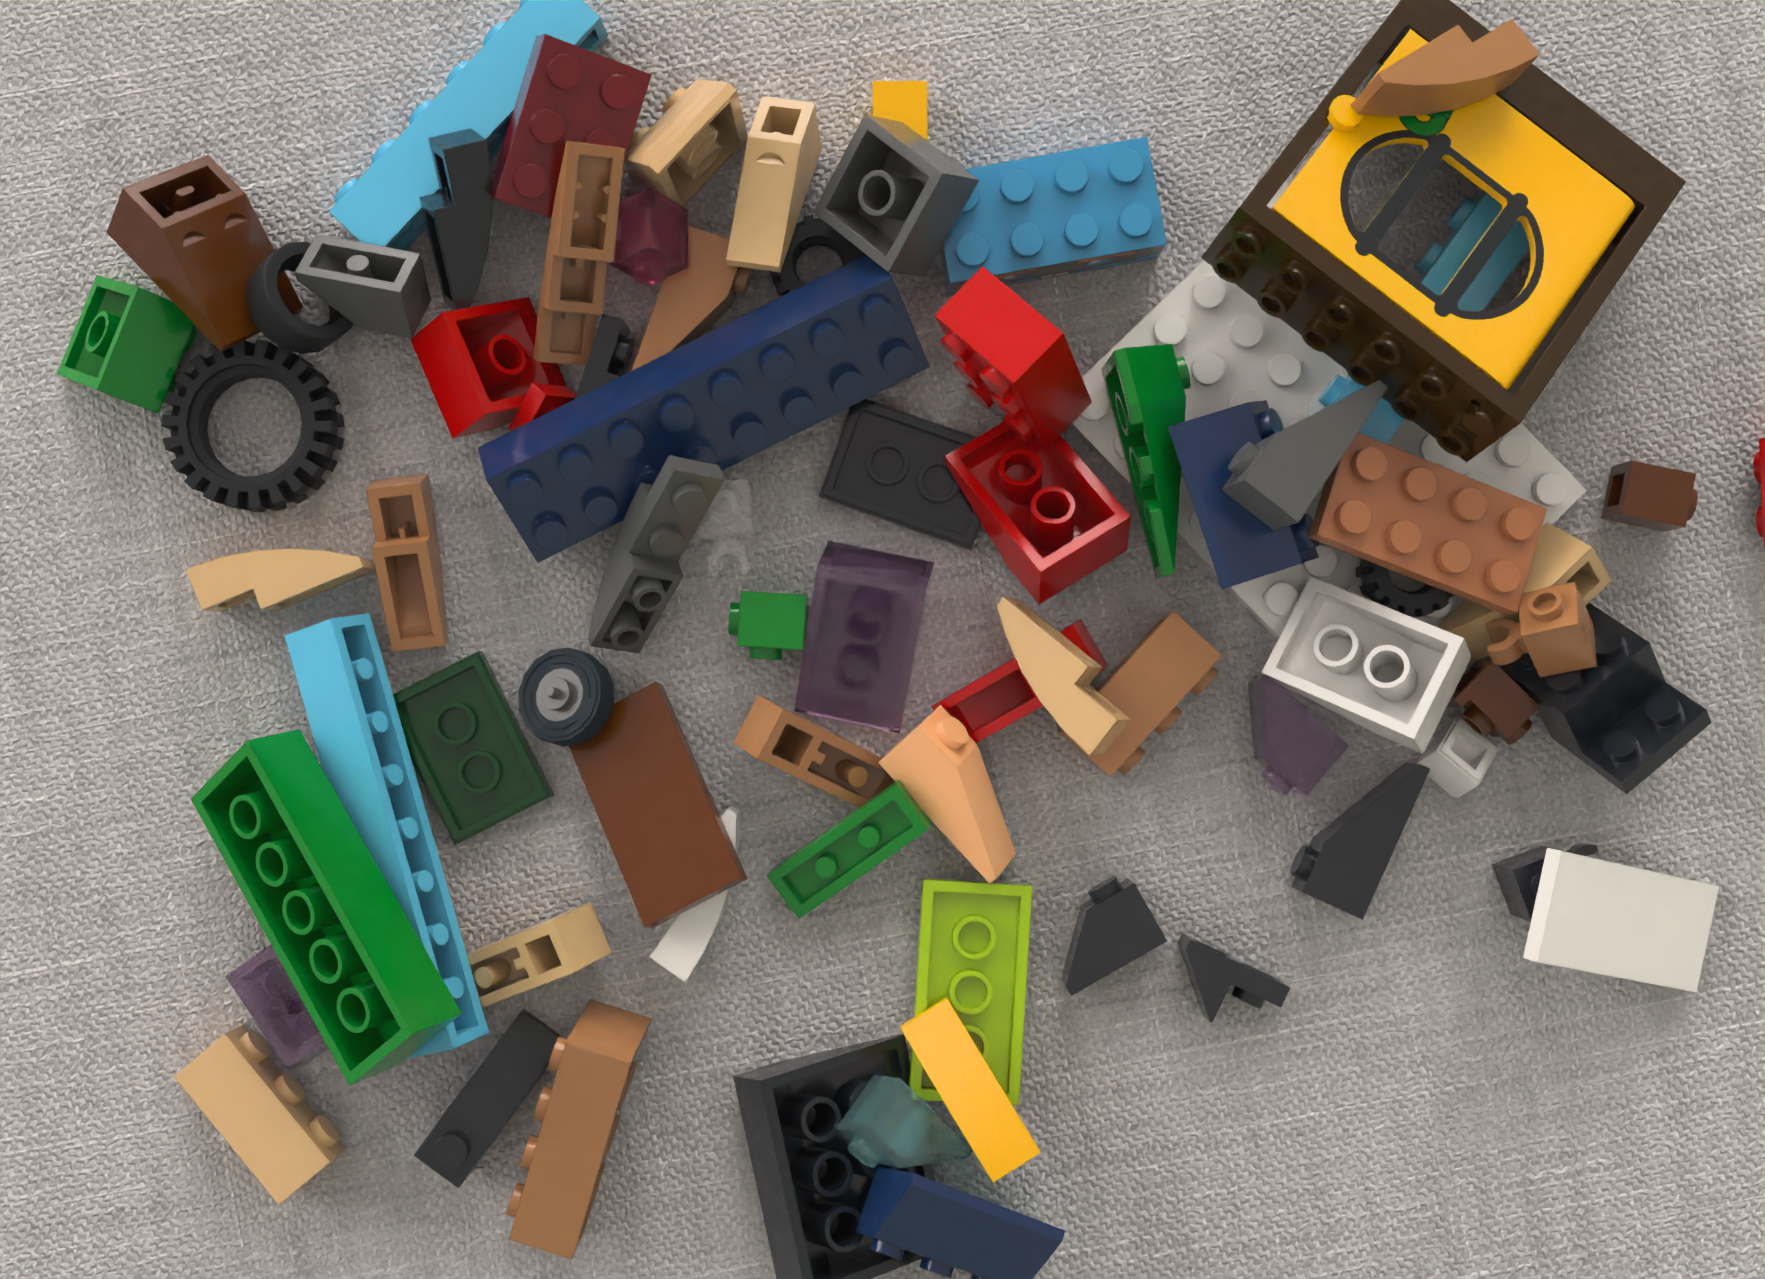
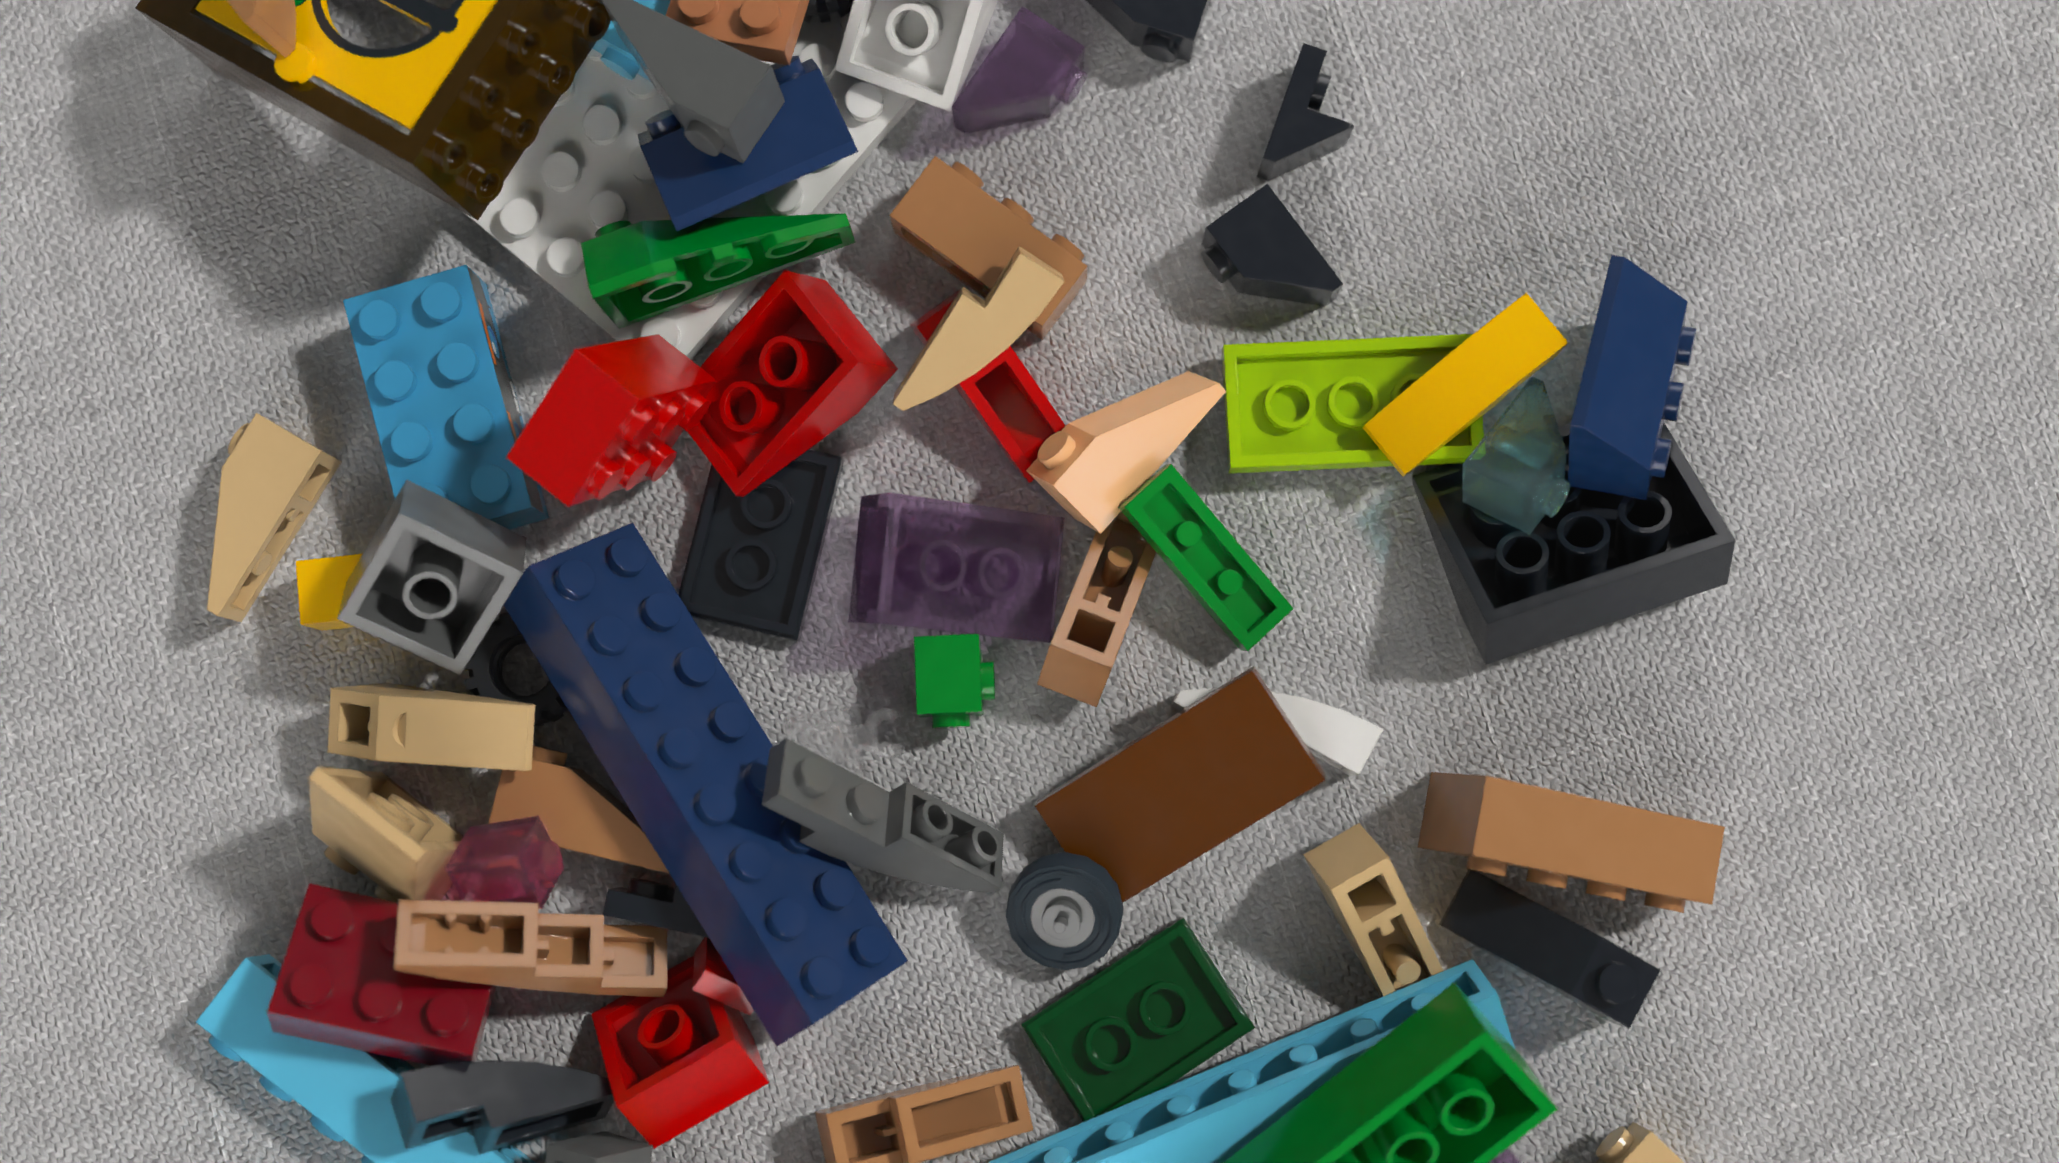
camera: 90 degrees left, 5 degrees down
(981, 54) = (262, 504): none -> tan slope

